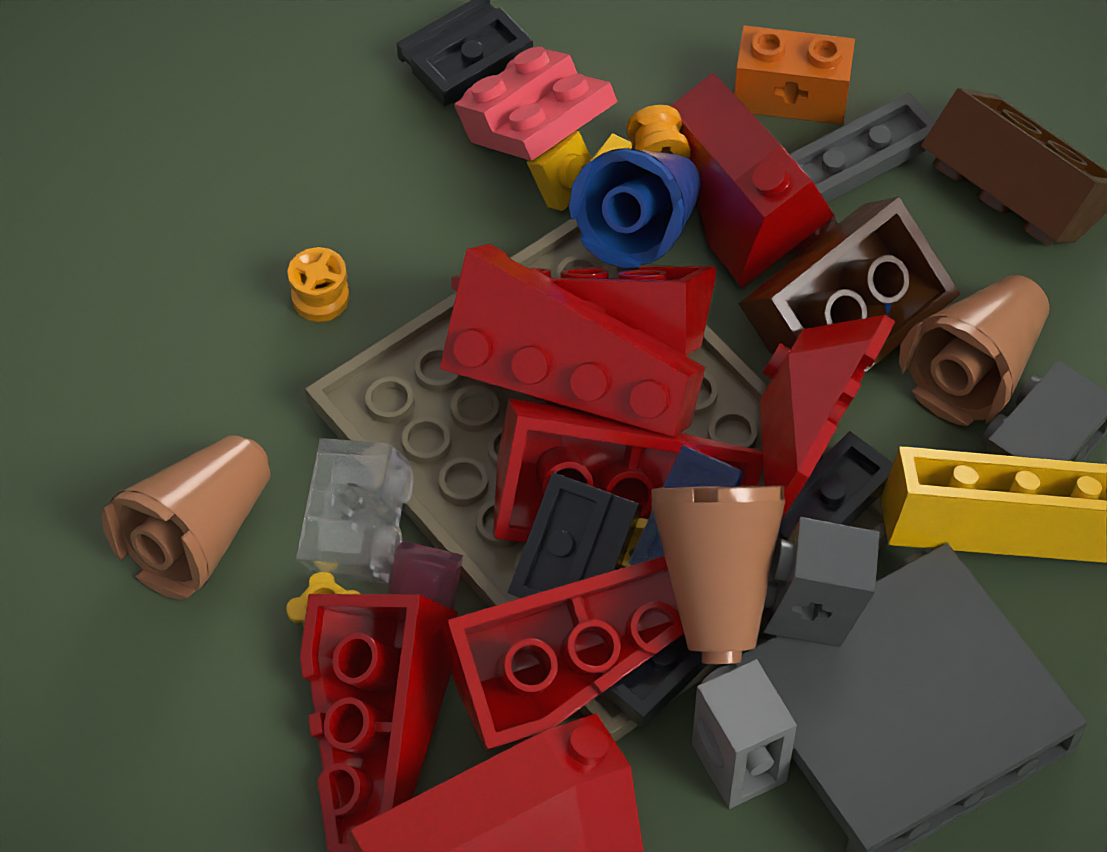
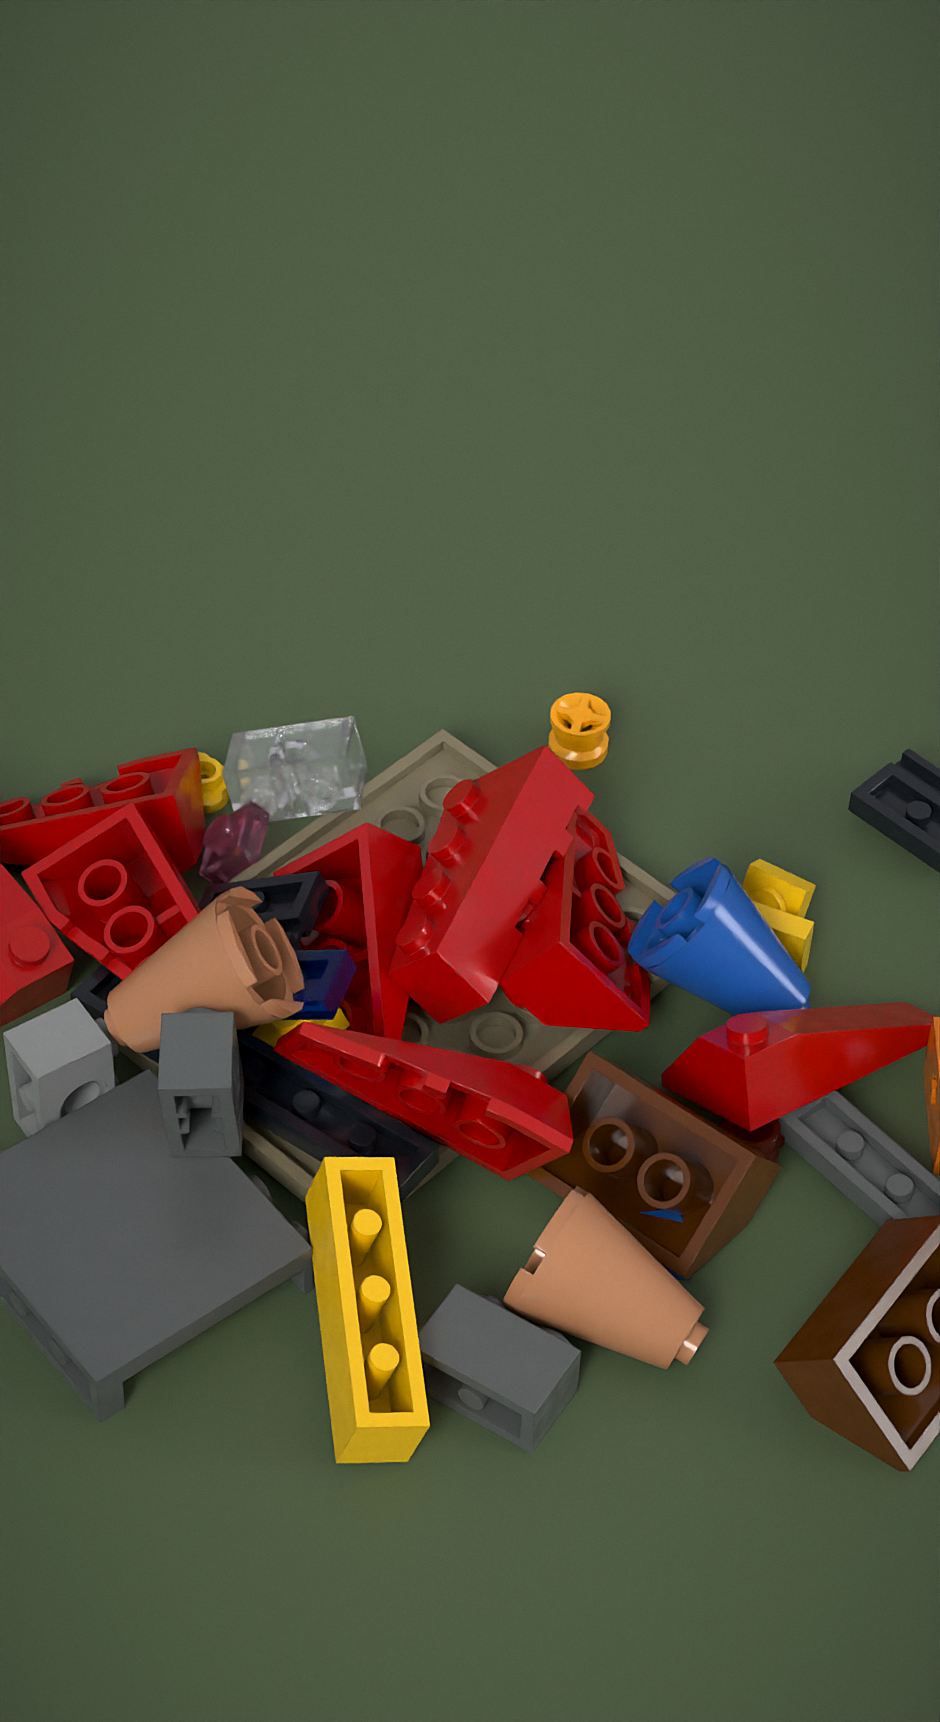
camera: 80 degrees right, 10 degrees down
(187, 515) = (283, 661): nougat cone -> none
(532, 104) = (848, 859): coral plate -> none
(657, 130) = (840, 979): light orange wheel -> none

